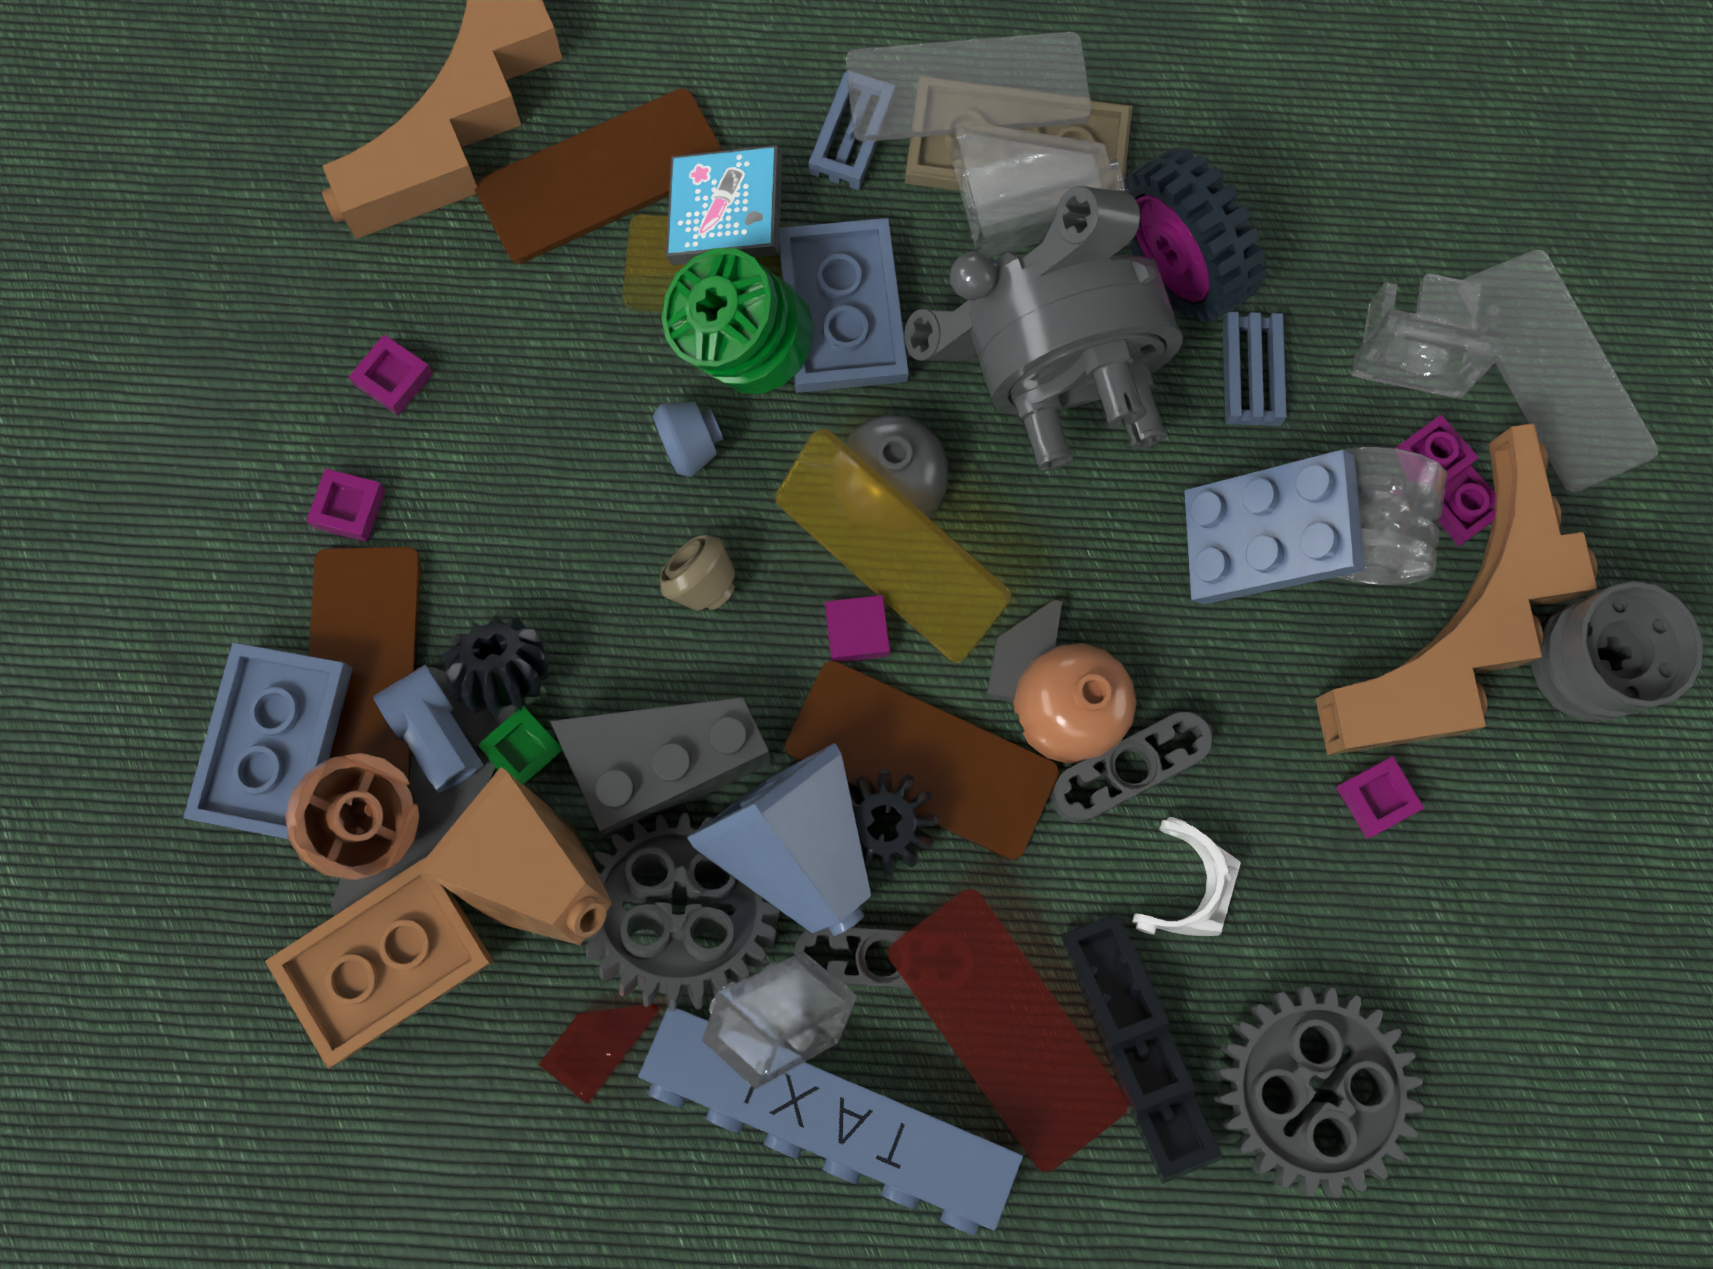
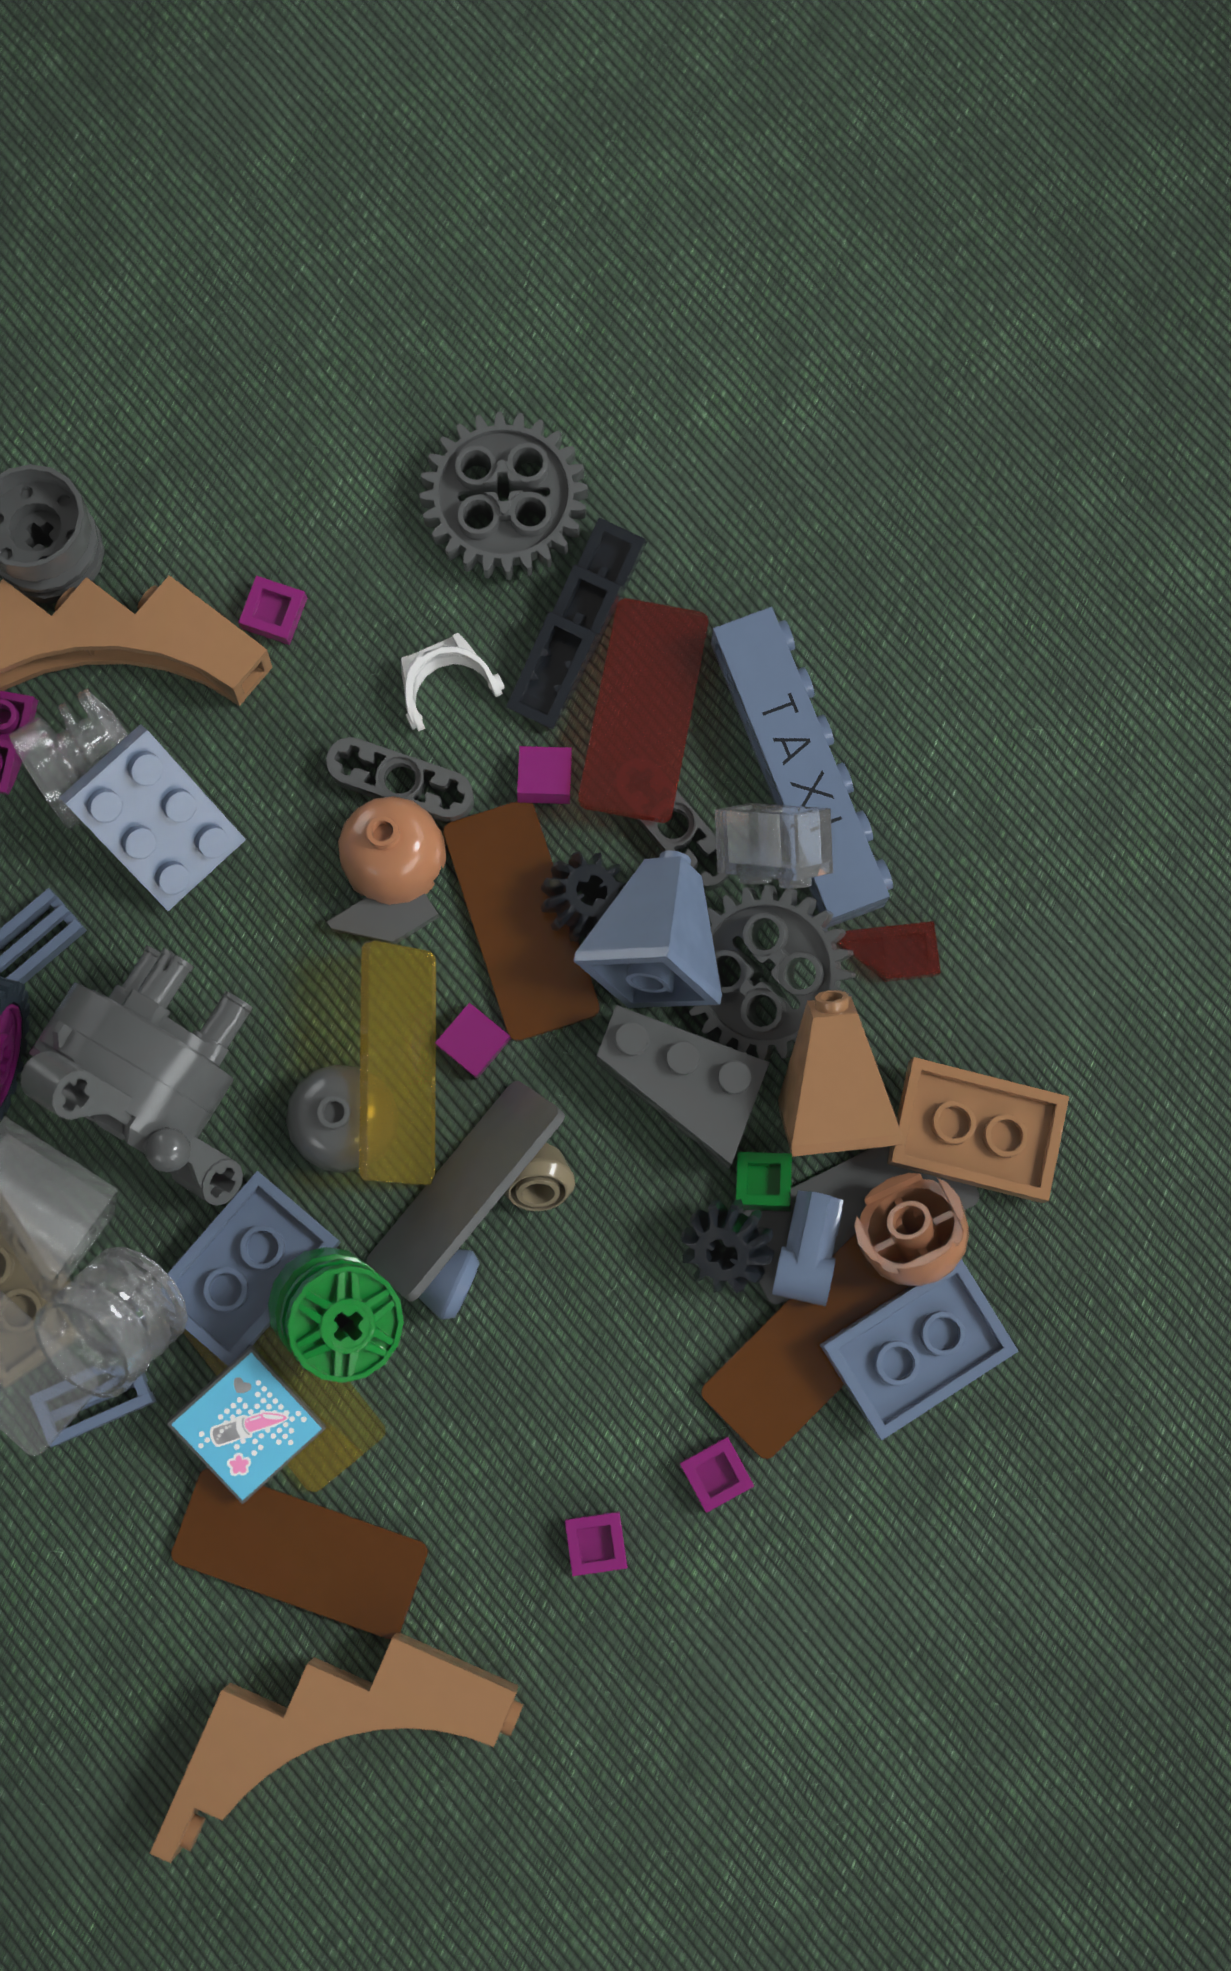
camera: 130 degrees left, 5 degrees up
(740, 510) = (465, 1189): none -> dark grey piece
(890, 176) = (111, 1322): none -> clear wheel
(1027, 890) = (544, 775): none -> magenta tile

